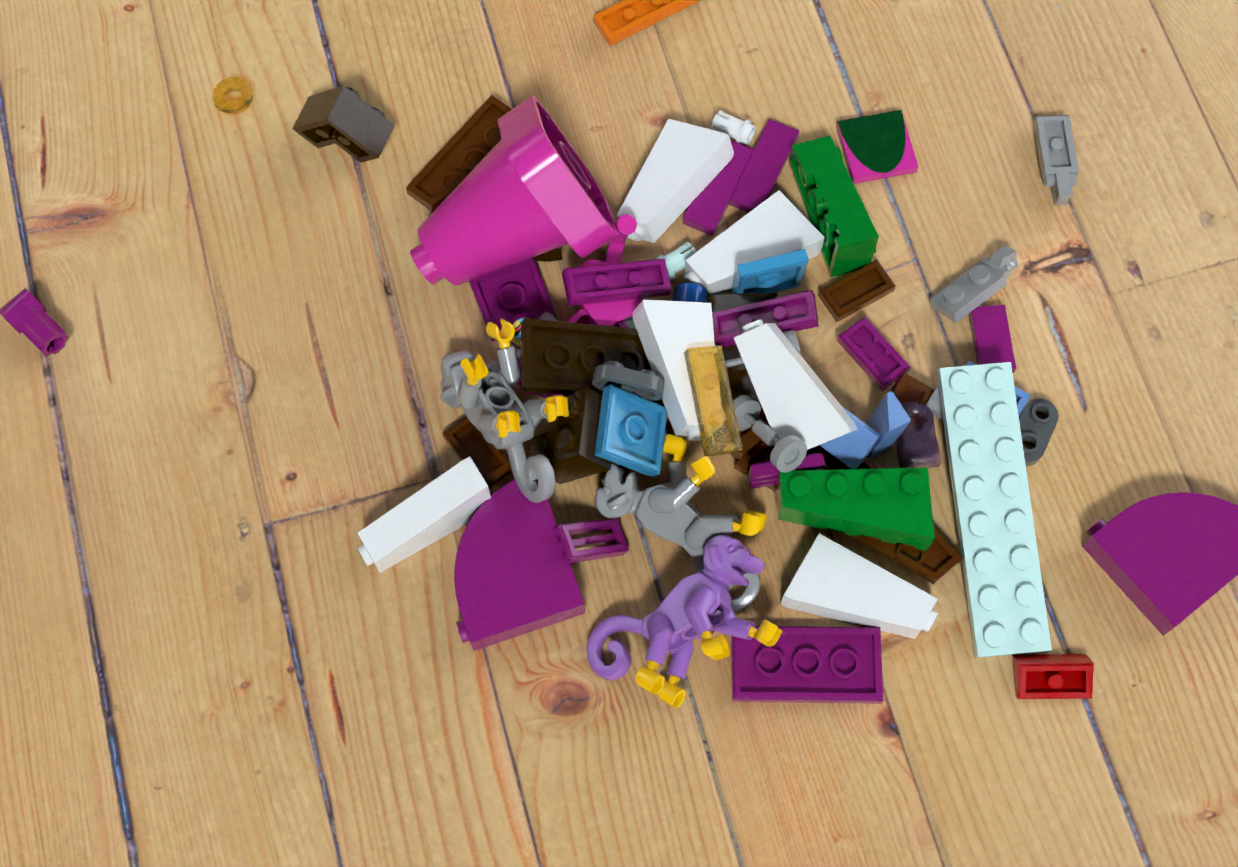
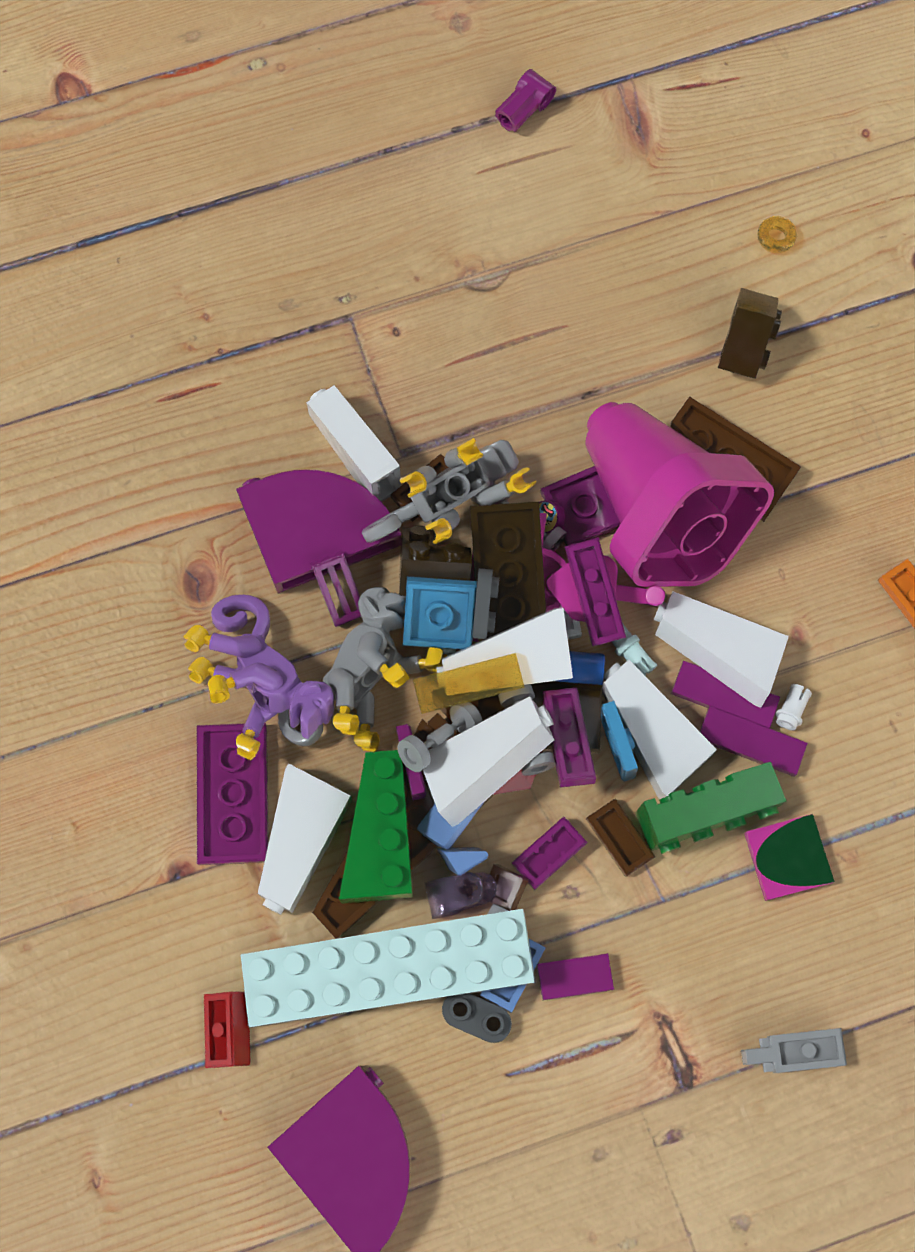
camera: 85 degrees right, 5 degrees up
(975, 285) = (633, 959): light grey hinge -> none

